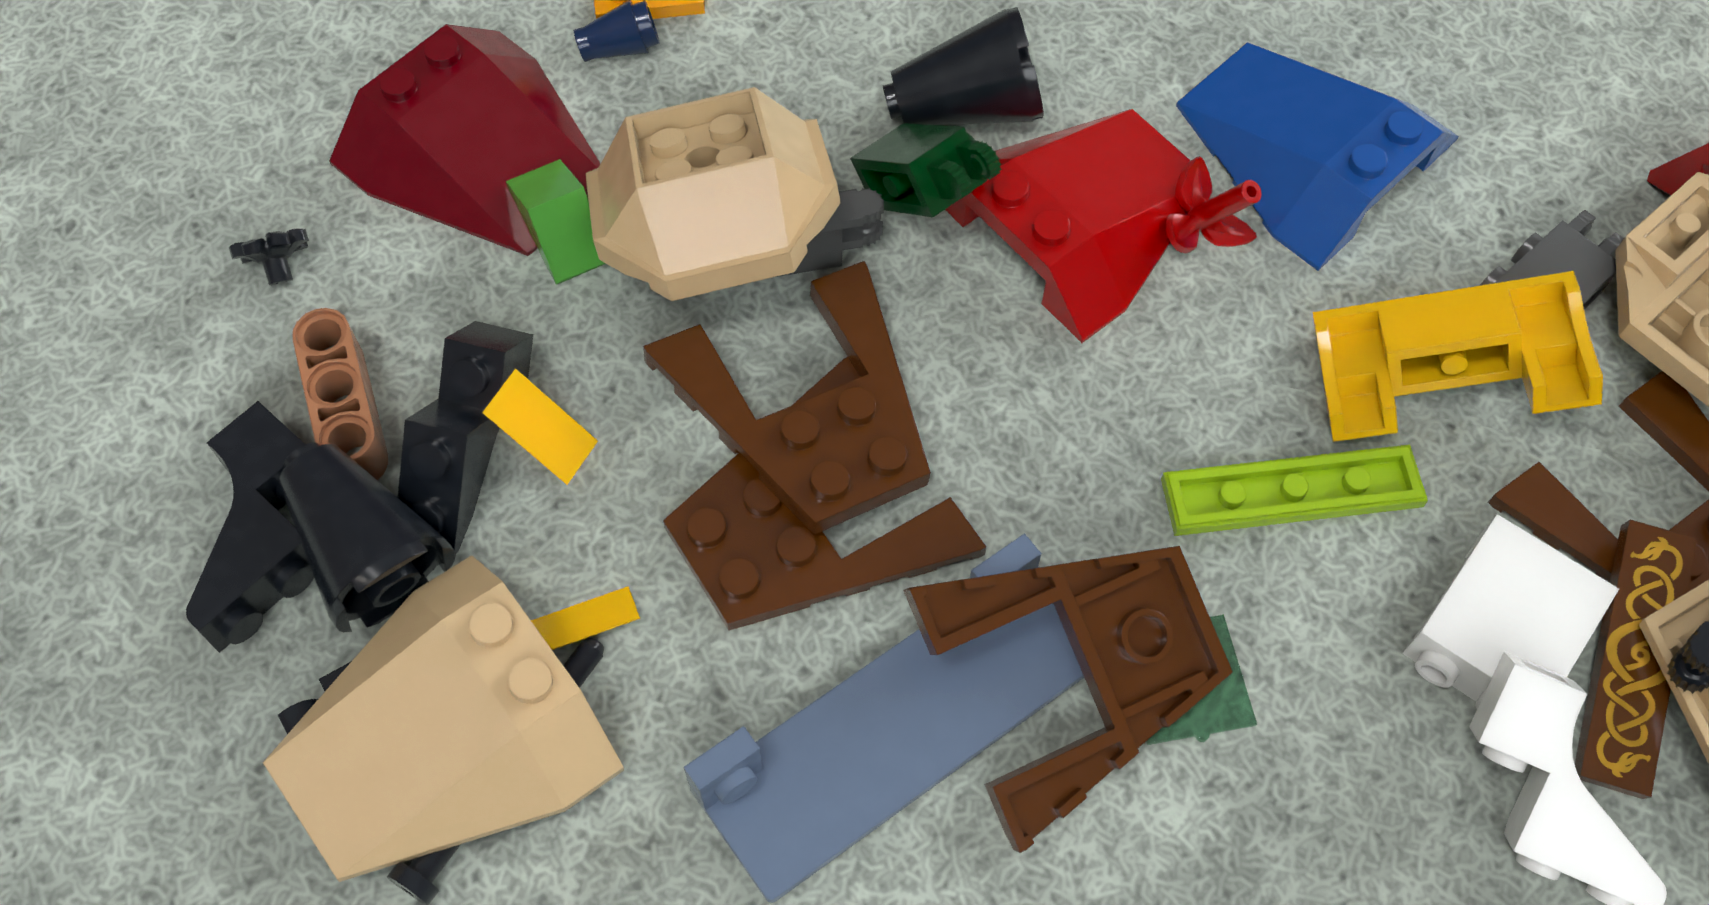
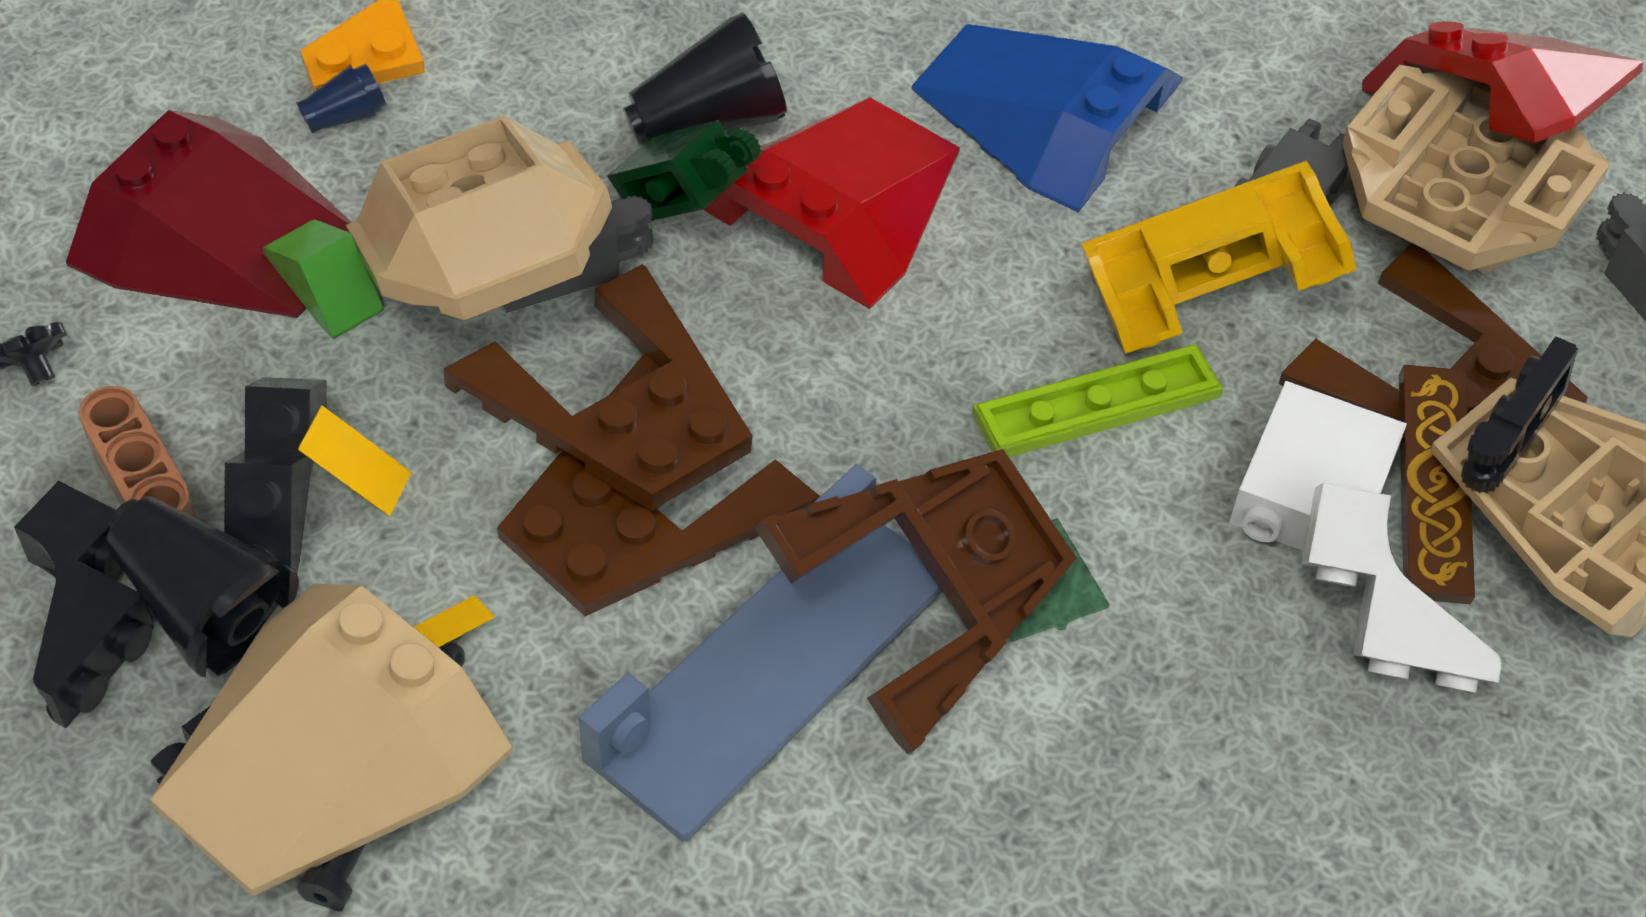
camera: 15 degrees left, 10 degrees down
(1211, 215) = (965, 175): red plant -> none

